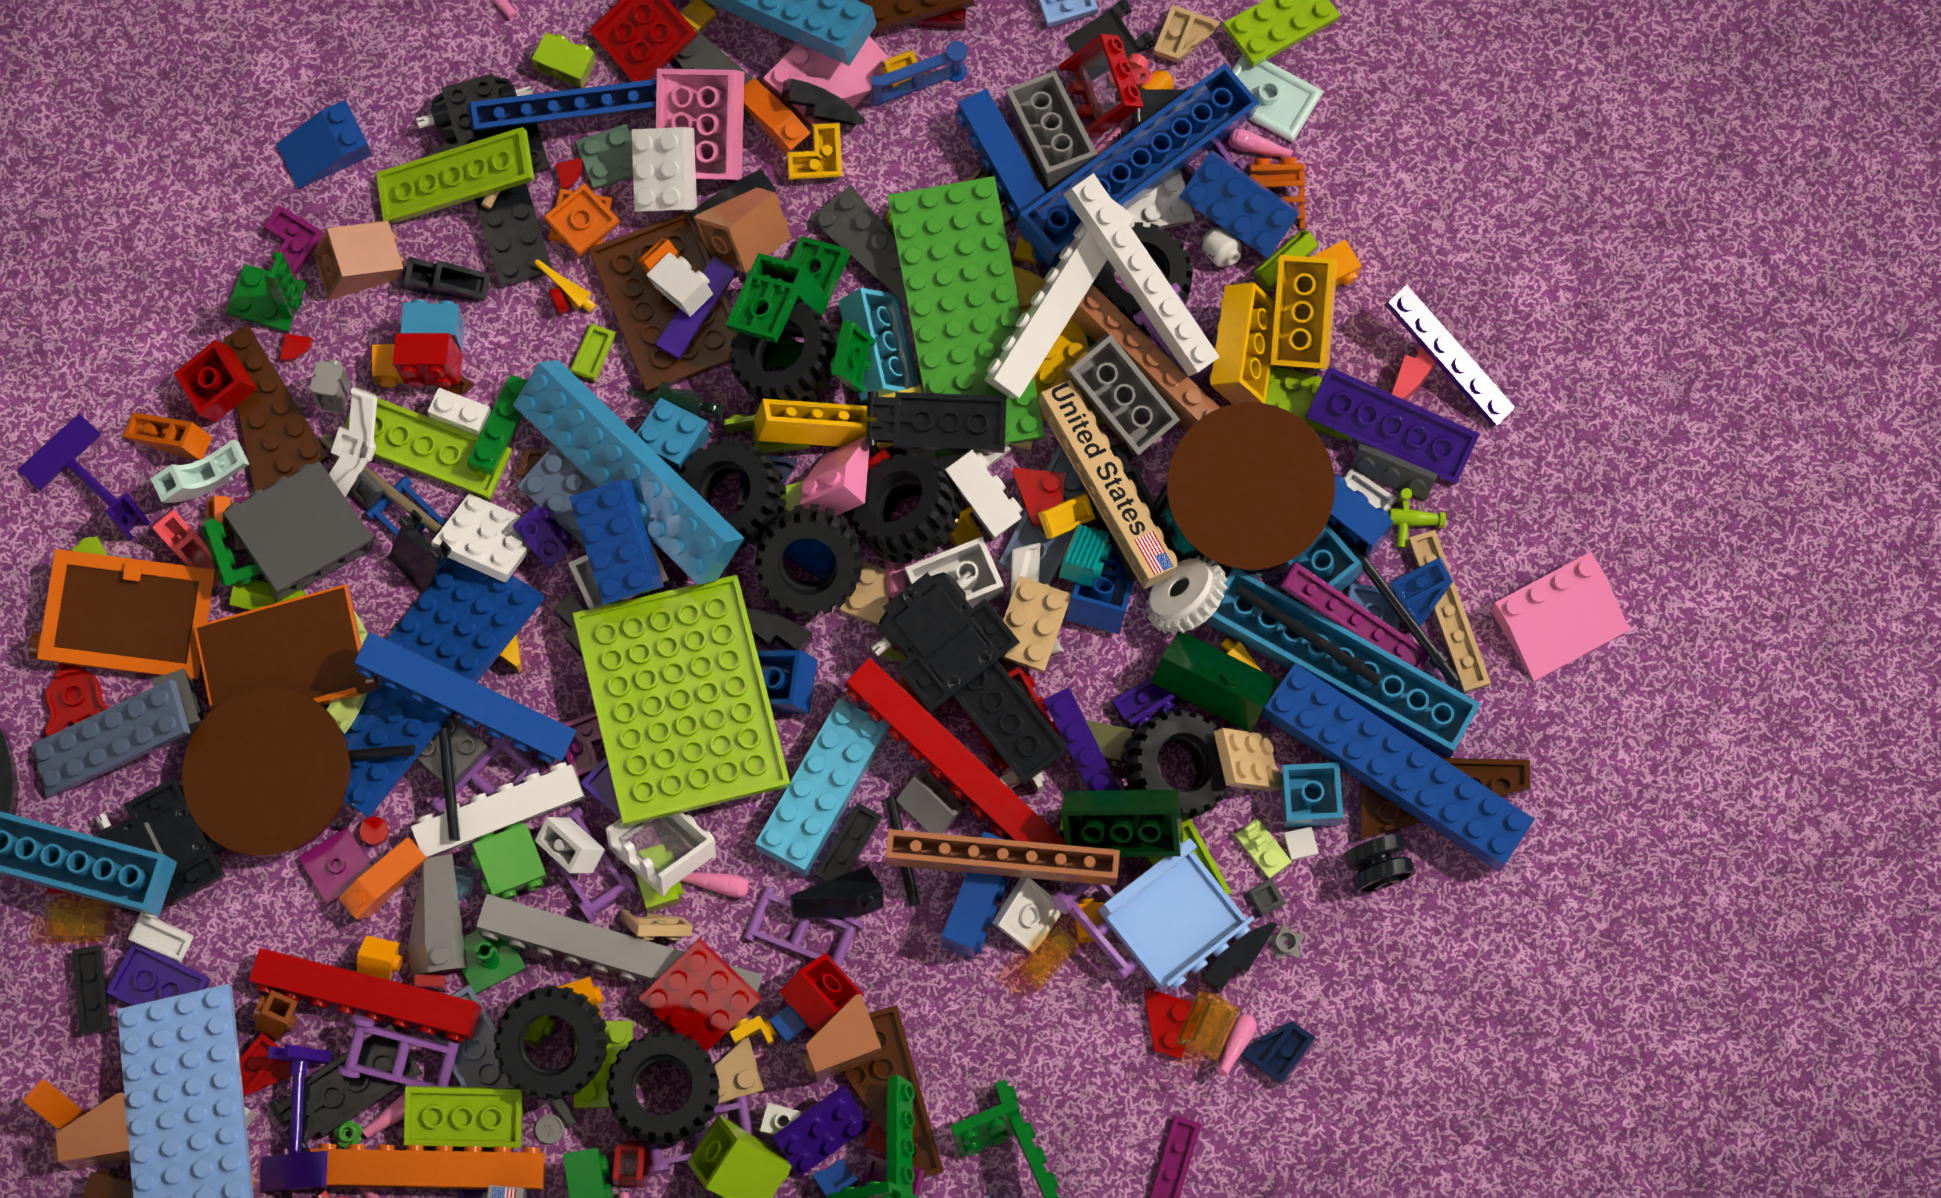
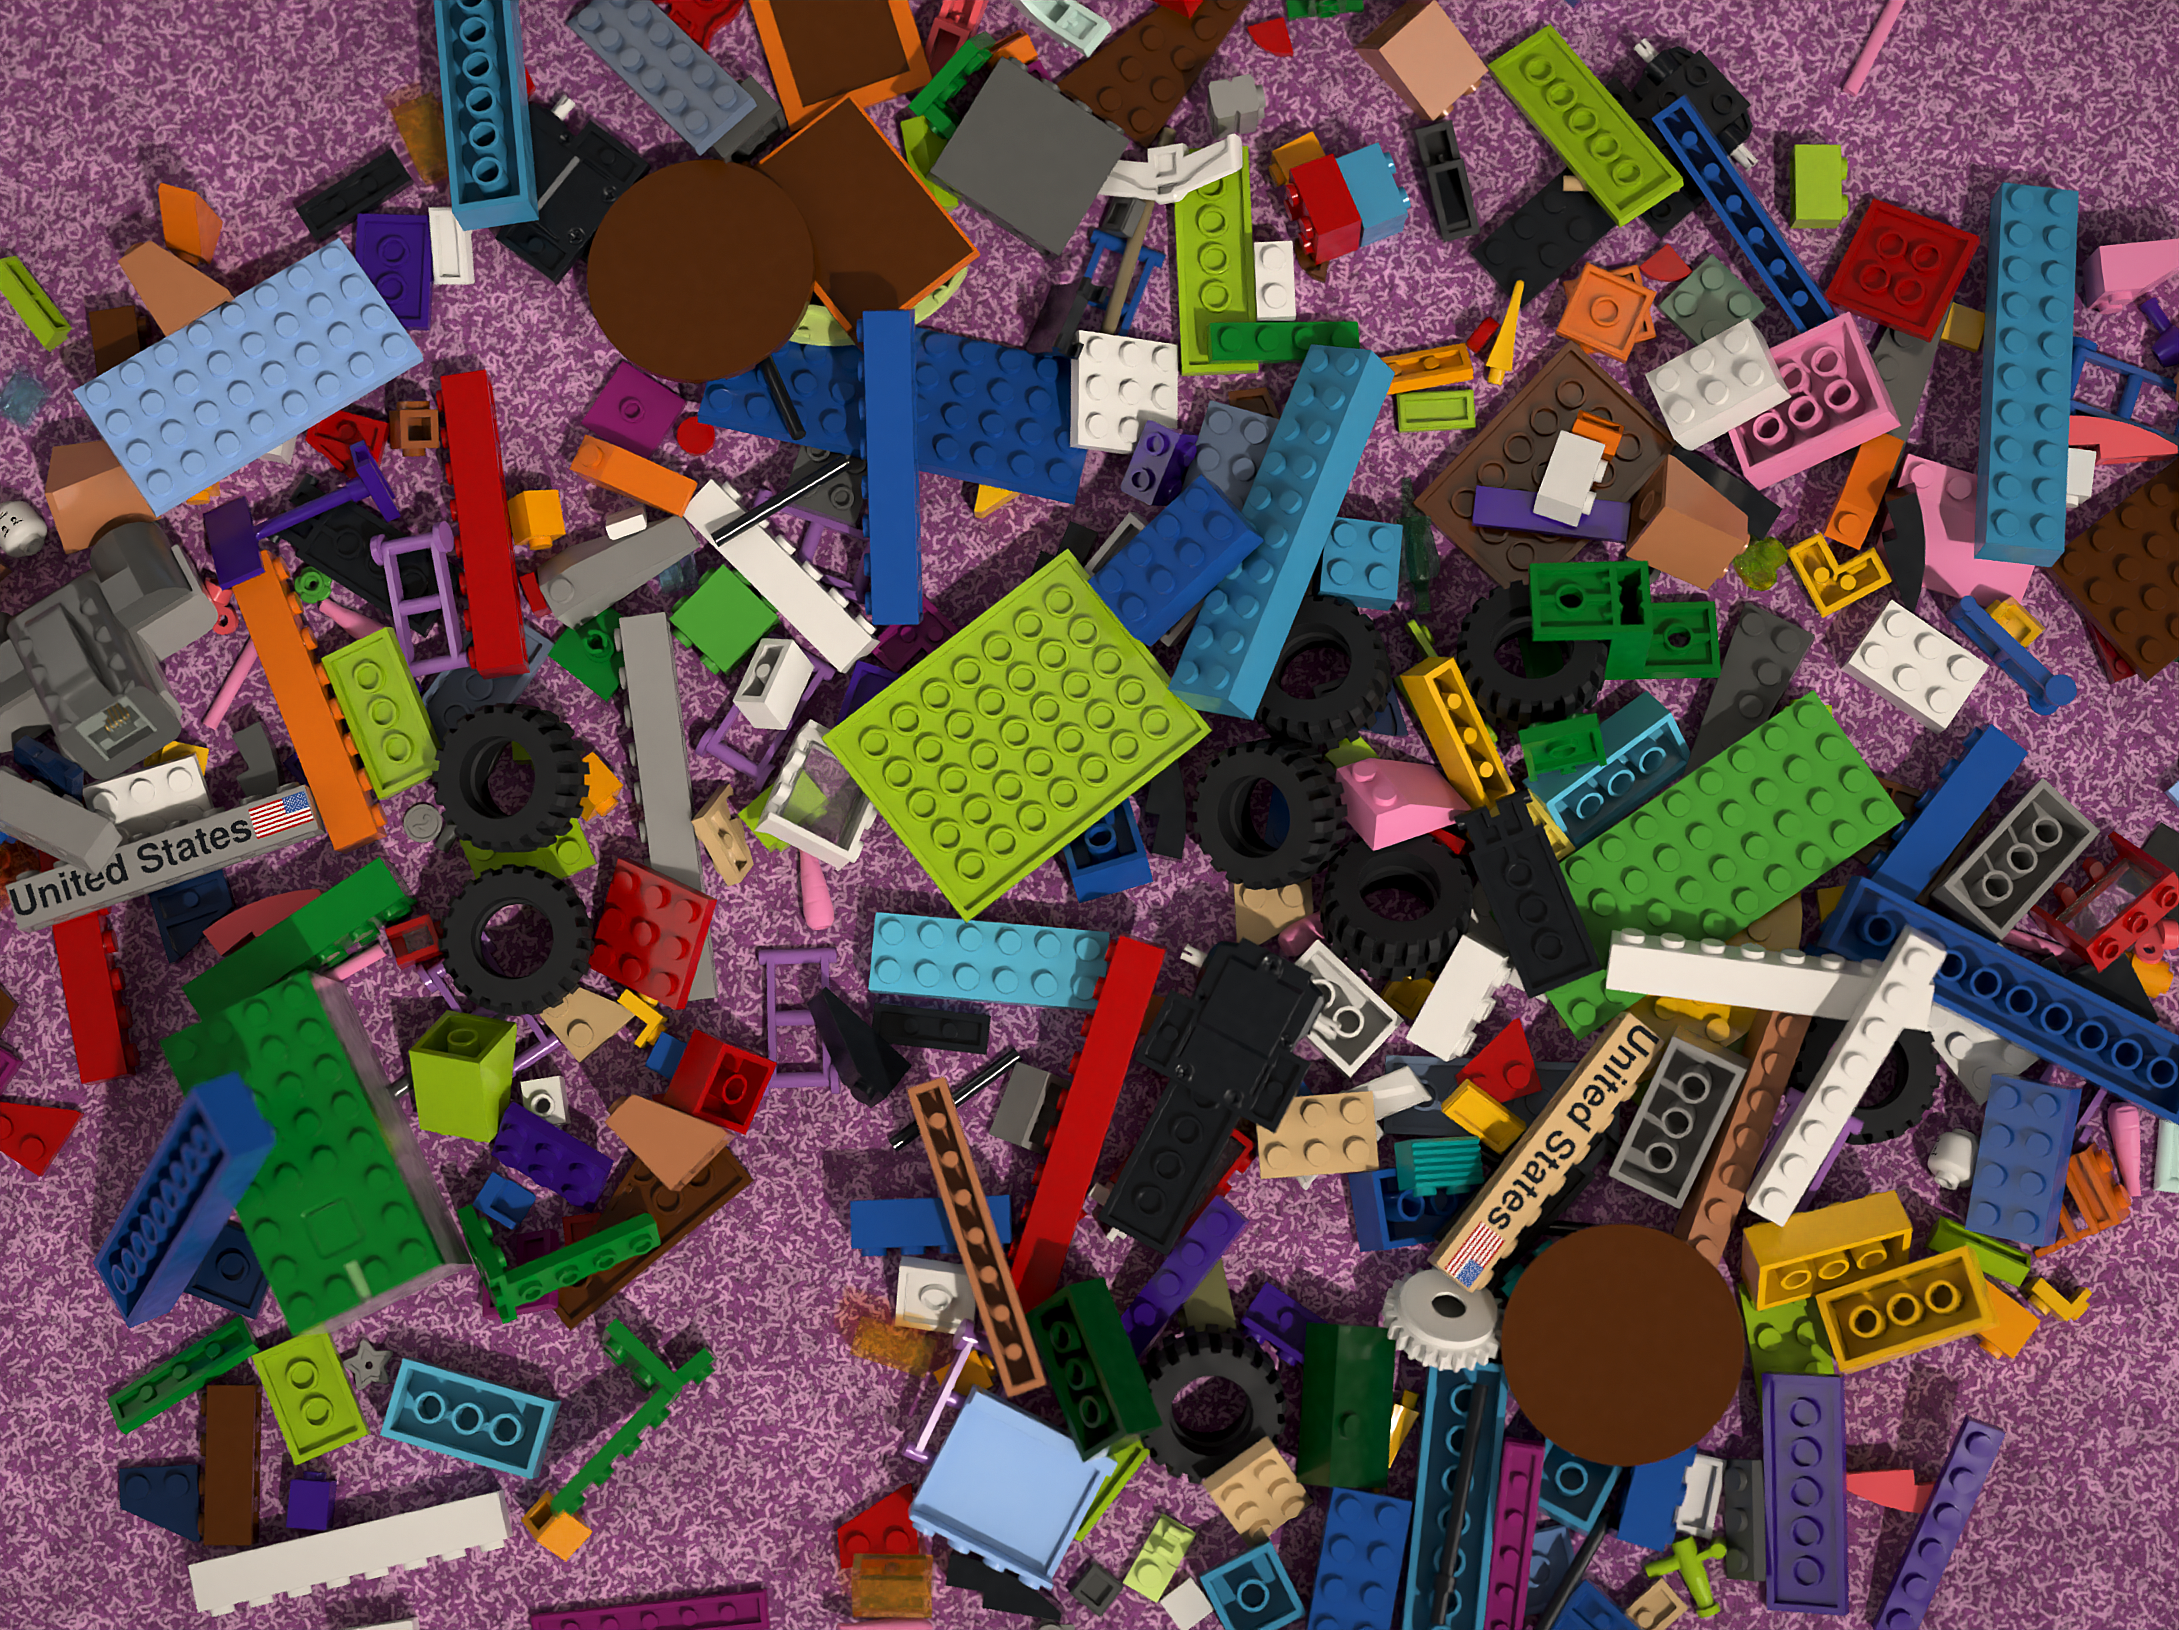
camera: 75 degrees right, 10 degrees up
(411, 896) = (626, 522): none -> white tile
(565, 339) = (1429, 368): none -> light orange plate
(792, 199) = (1760, 562): none -> clear neon green piece
(900, 135) = (1914, 667): none -> white brick
(1334, 231) = (2048, 1300): none -> yellow bracket

